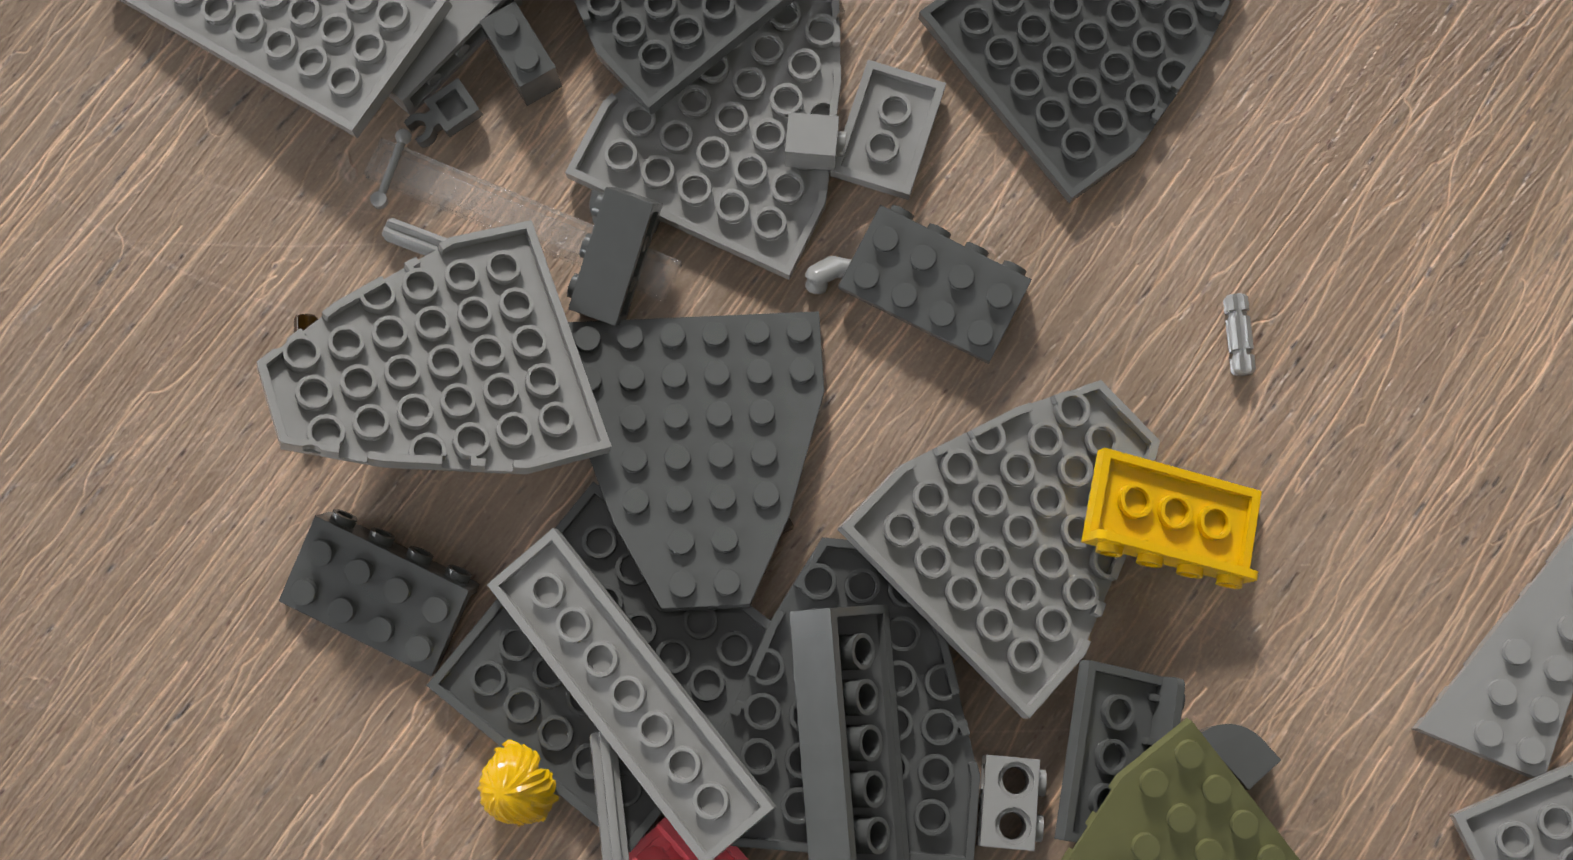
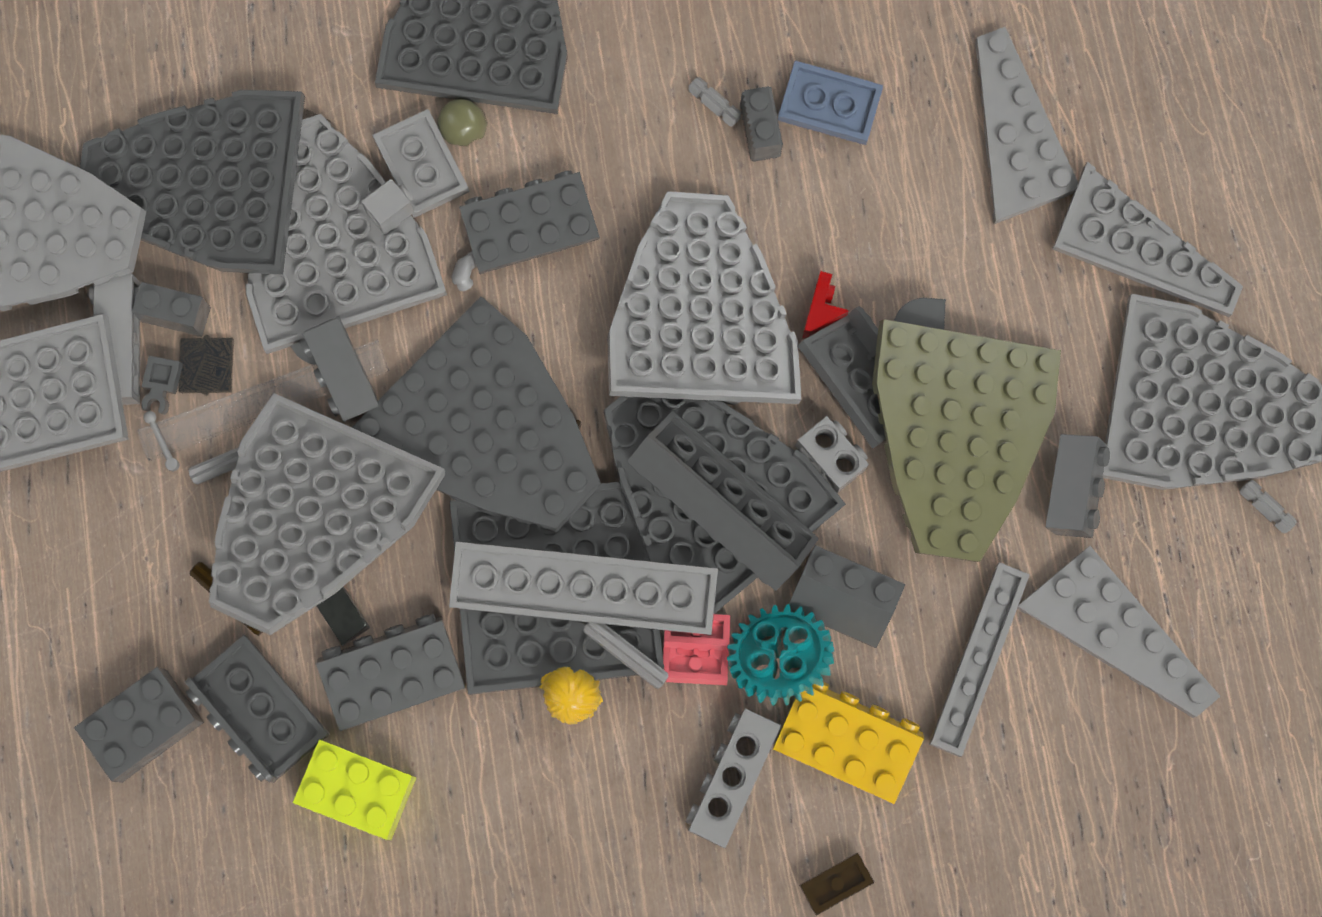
camera: 50 degrees left, 0 degrees up
(110, 414) = (138, 725): none -> dark grey brick
(222, 506) = (256, 710): none -> dark grey bracket
(234, 672) = (354, 790): none -> neon yellow brick
(391, 497) = (343, 616): none -> pearl dark grey slope
(504, 136) = (206, 365): none -> clear smoke piece
(967, 126) = (461, 122): none -> olive hair
(1135, 649) = (822, 314): none -> red slope
(1172, 518) = (773, 229): yellow bracket -> none
(1264, 400) = (761, 124): none -> dark grey brick
(1358, 445) = (830, 102): none -> sand blue plate

